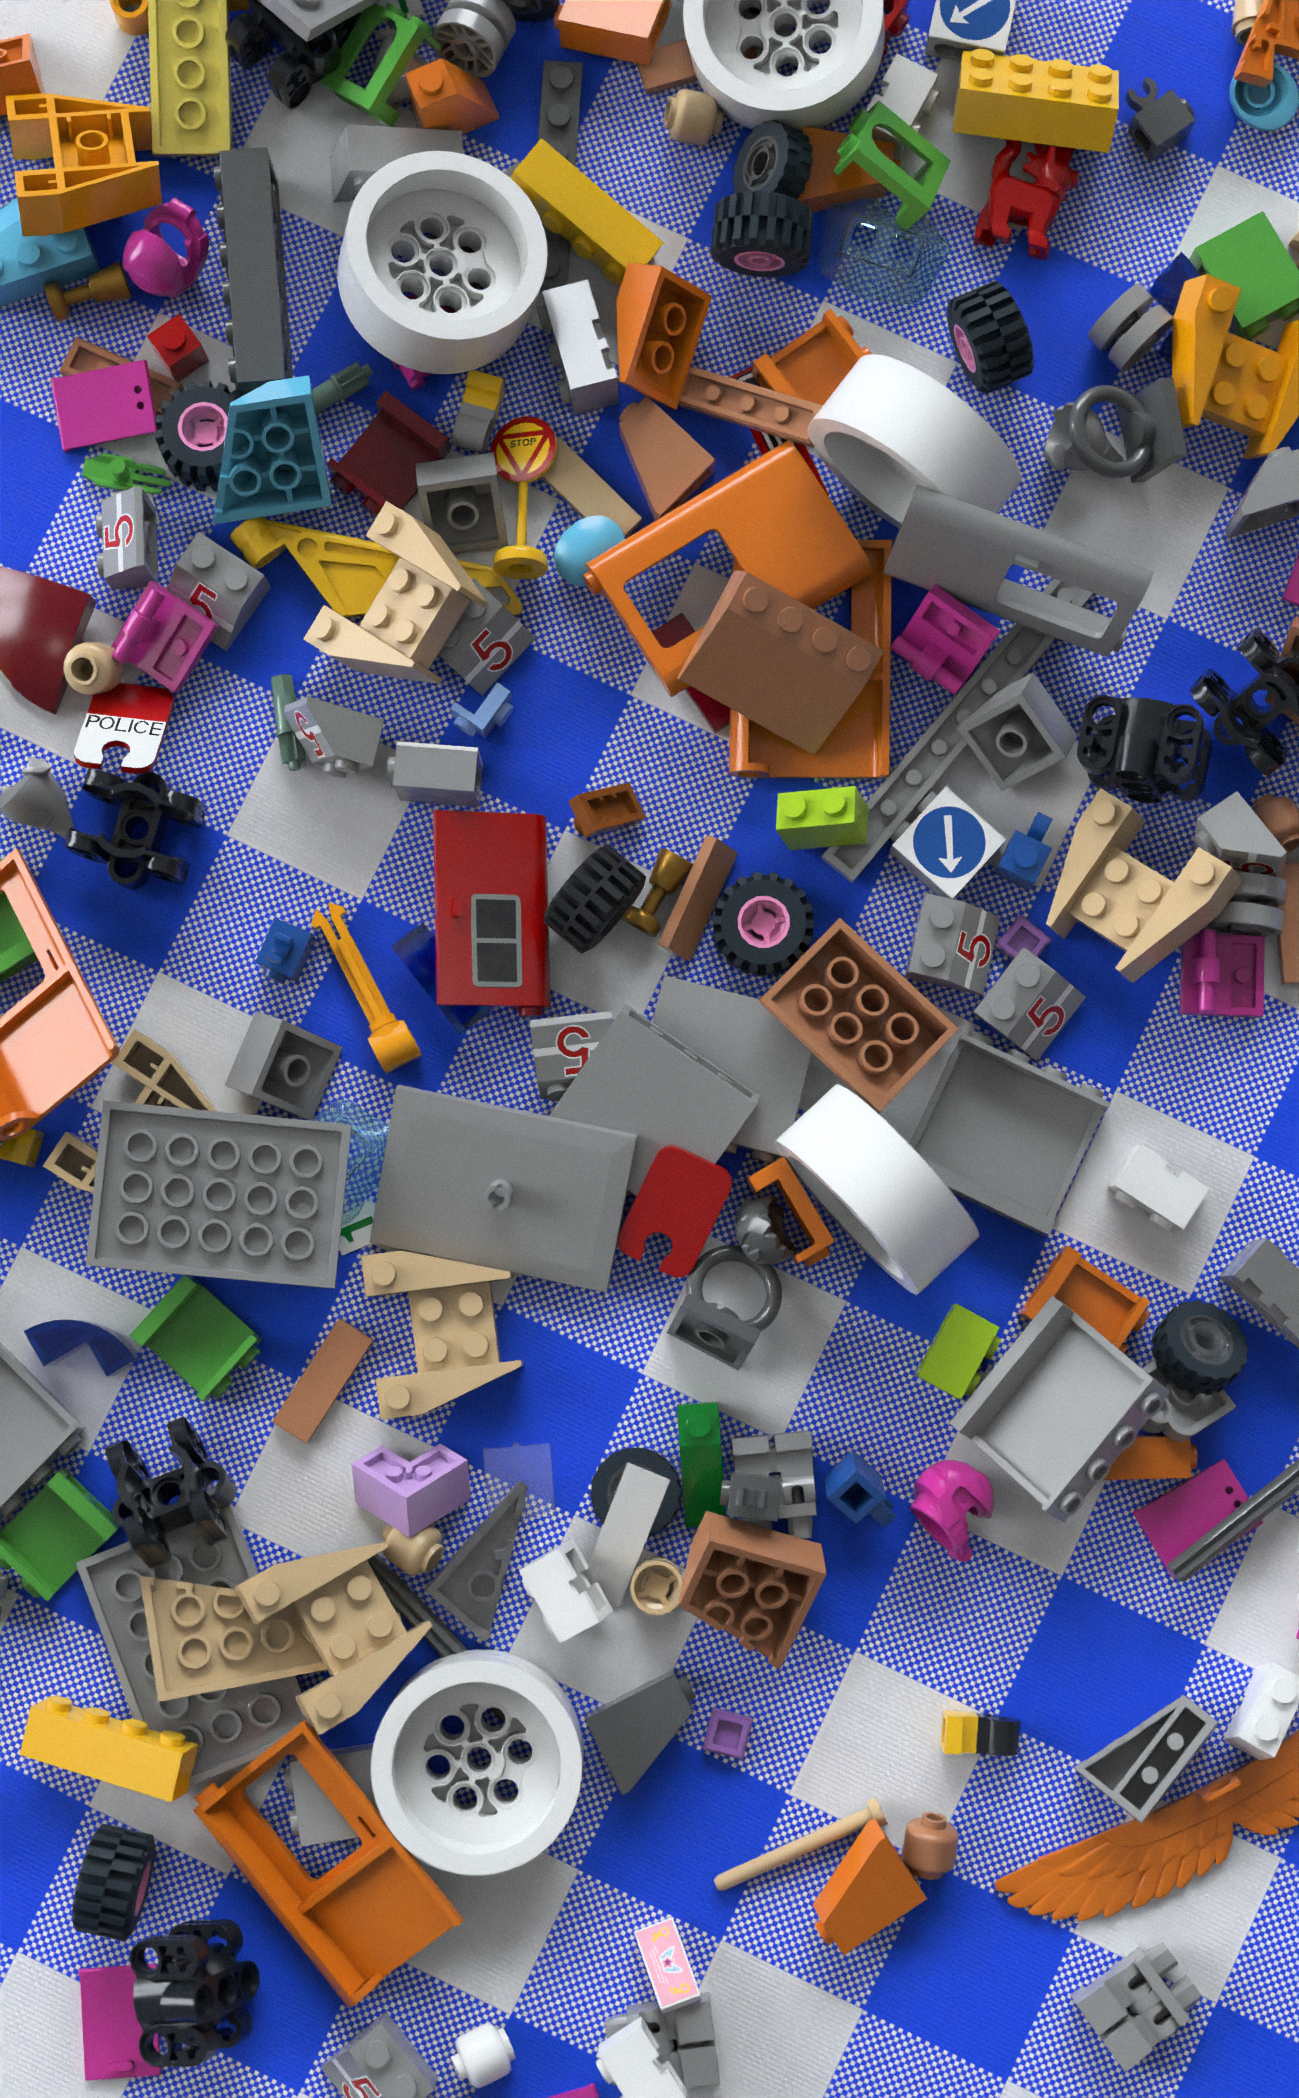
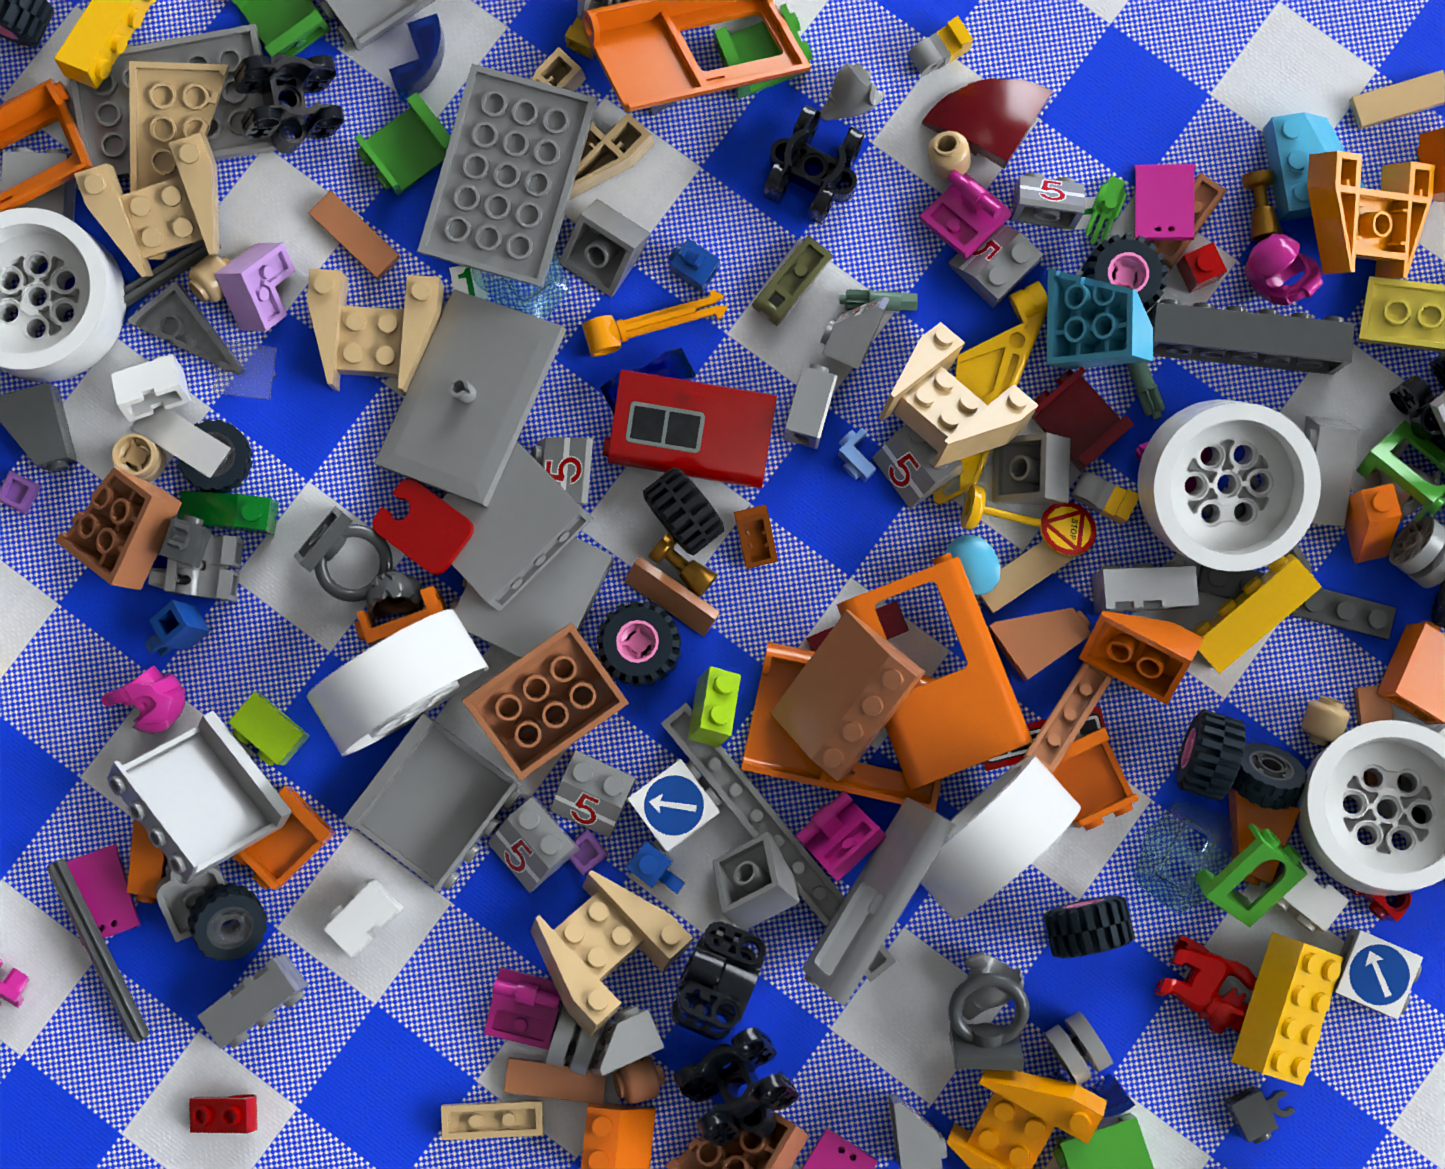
camera: 100 degrees right, 0 degrees up
(125, 718) = (903, 171): piece -> none
(281, 829) = (793, 279): none -> olive plate

